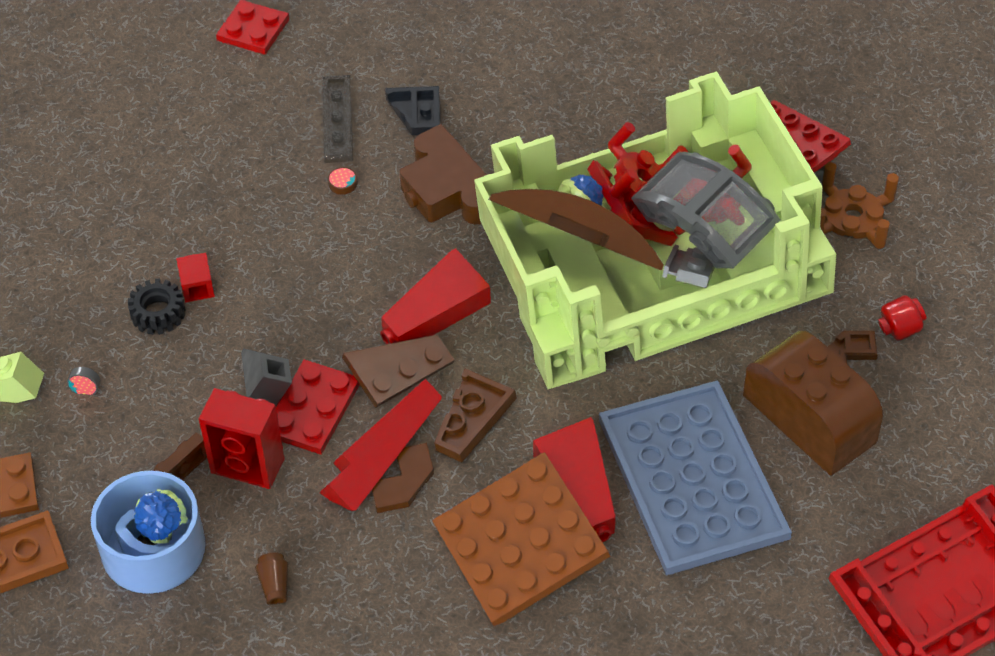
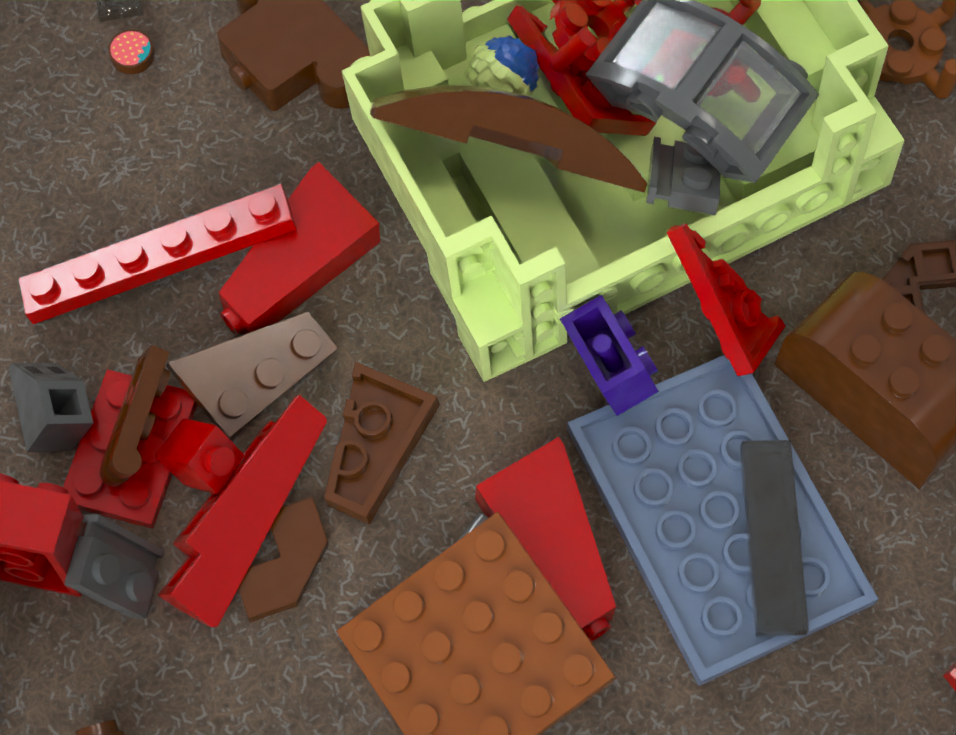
camera: 10 degrees left, 15 degrees up
(294, 466) = (114, 567): none -> dark grey plate
(319, 382) = (134, 419): none -> reddish brown plate
(344, 293) = (156, 254): none -> plate
(357, 410) = (200, 455): none -> red brick
(630, 371) = (609, 356): none -> dark purple brick
(709, 344) = (727, 302): none -> red wing
(725, 488) = (773, 538): none -> clear smoke tile

